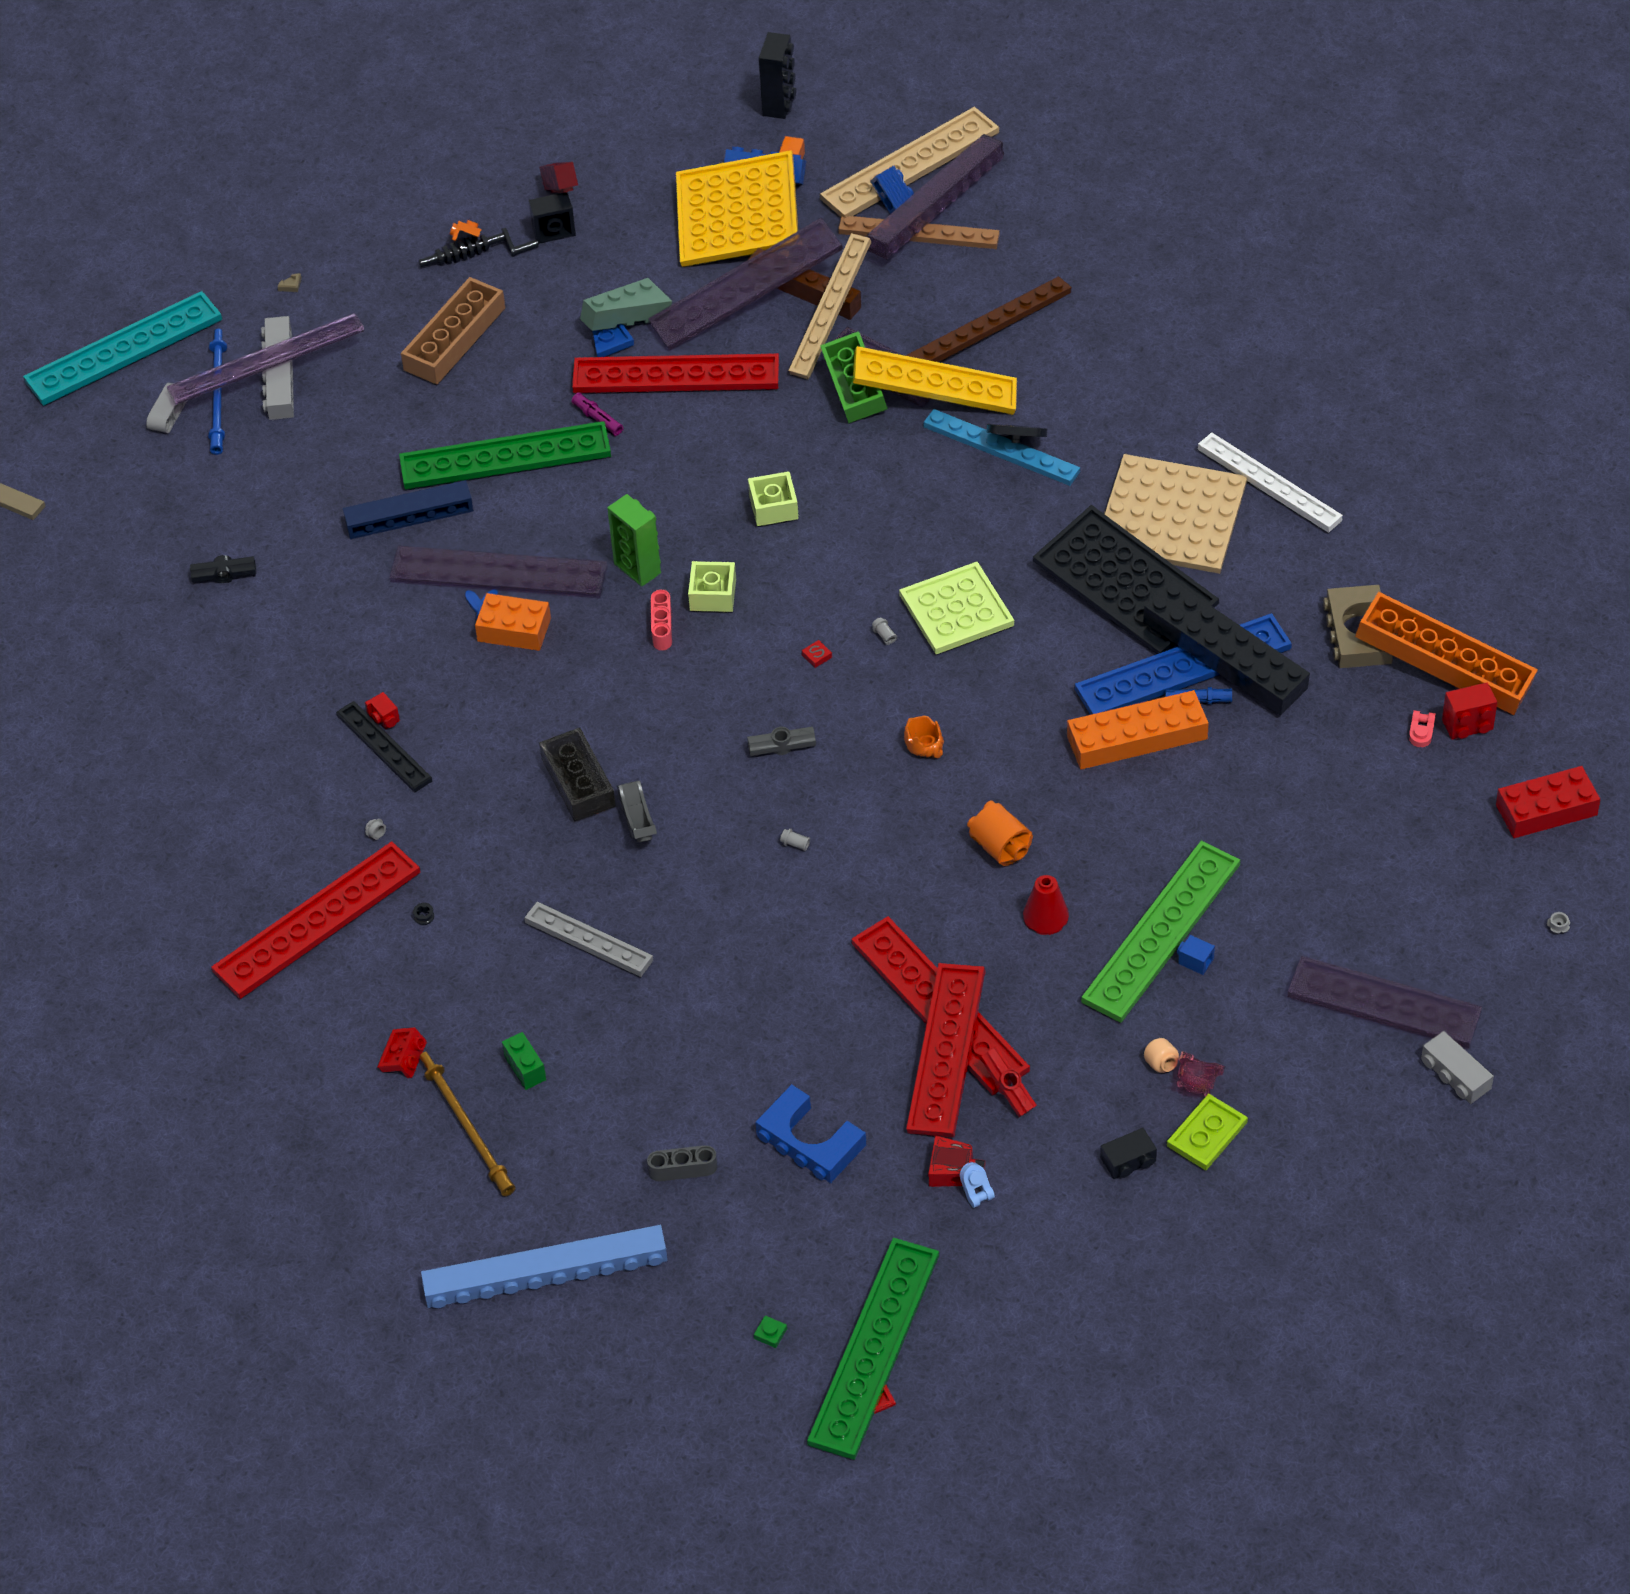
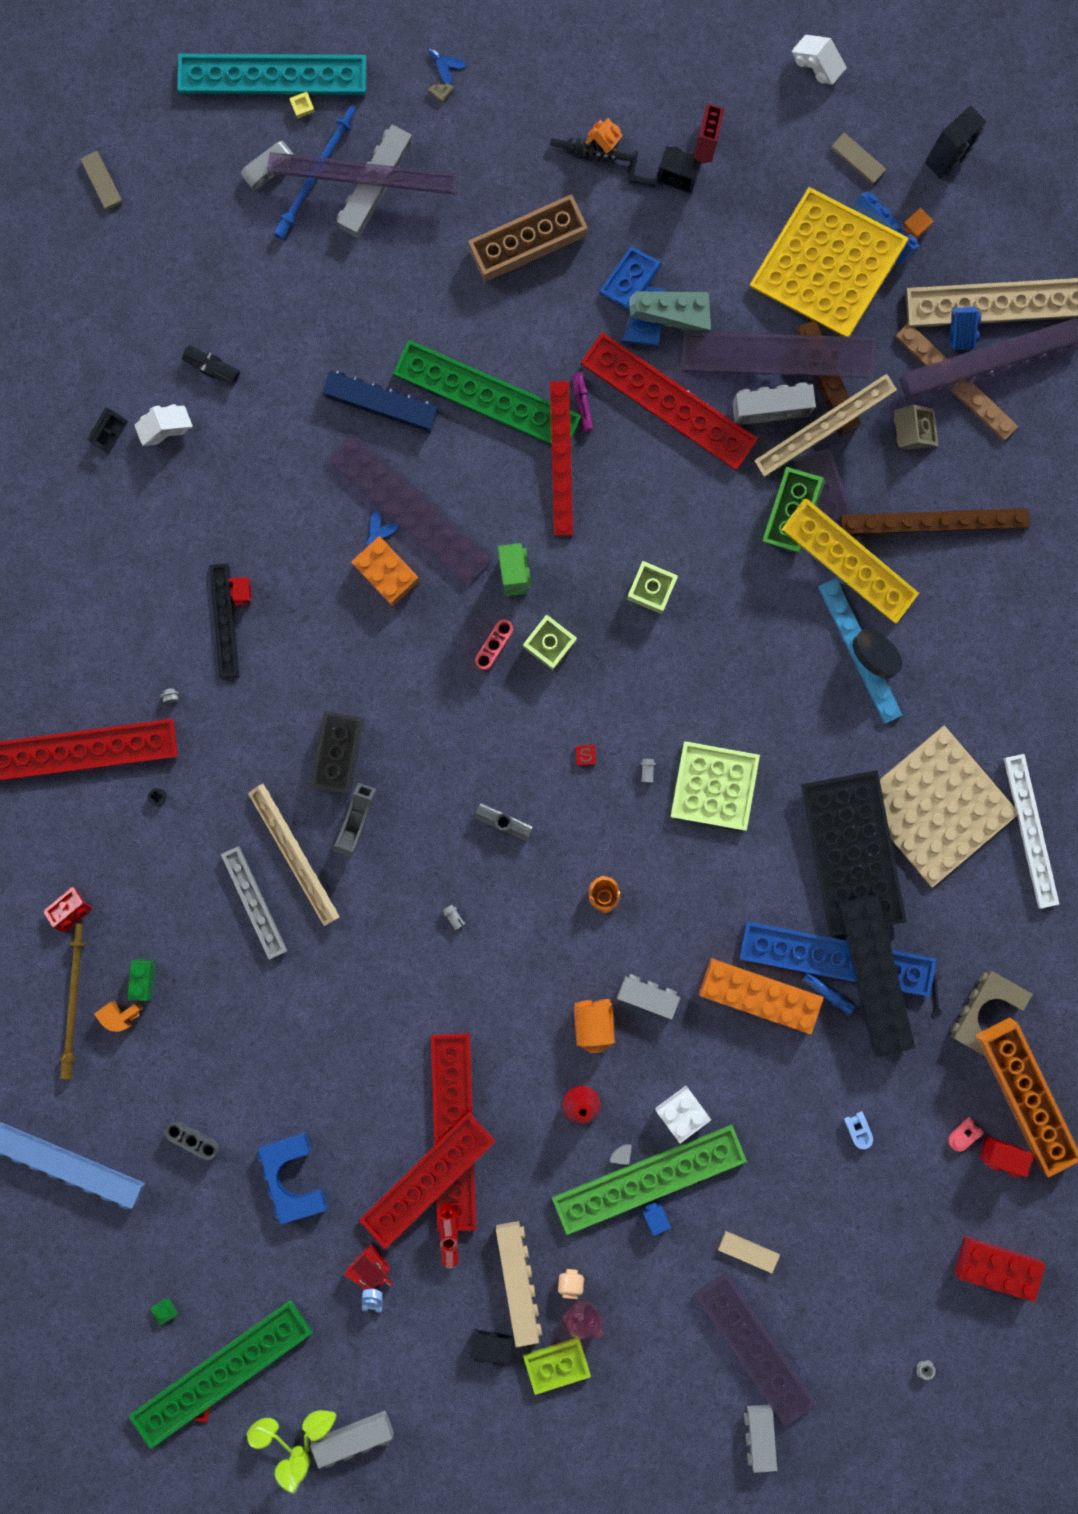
camera: 30 degrees right, 35 degrees up
(157, 667) = (107, 430): none -> black hinge
(168, 353) = (302, 105): none -> light yellow plate
(207, 628) = (162, 423): none -> white brick
(279, 264) = (444, 62): none -> blue piece
(522, 1110) = (114, 1019): none -> orange brick
(566, 312) = (631, 275): none -> blue tile
(598, 879) = (293, 854): none -> tan plate
(611, 456) = (561, 458): none -> red plate
(614, 89) = (821, 56): none -> white brick
(702, 140) = (858, 158): none -> dark tan tile
(772, 320) = (773, 404): none -> light grey brick
(910, 275) = (915, 427): none -> dark tan slope
(1015, 1335) = (292, 1471): none -> lime plant
(1034, 791) = (648, 996): none -> light grey brick
(1057, 1318) = (352, 1439): none -> light grey brick
(1108, 1085) = (517, 1283): none -> tan brick
(1118, 929) = (621, 1155): none -> light grey tile
(1146, 858) = (682, 1114): none -> white brick
(1308, 933) = (748, 1252): none -> tan tile
(1309, 655) = (937, 1011): none -> black hinge
(1329, 781) = (861, 1137): none -> light blue plate

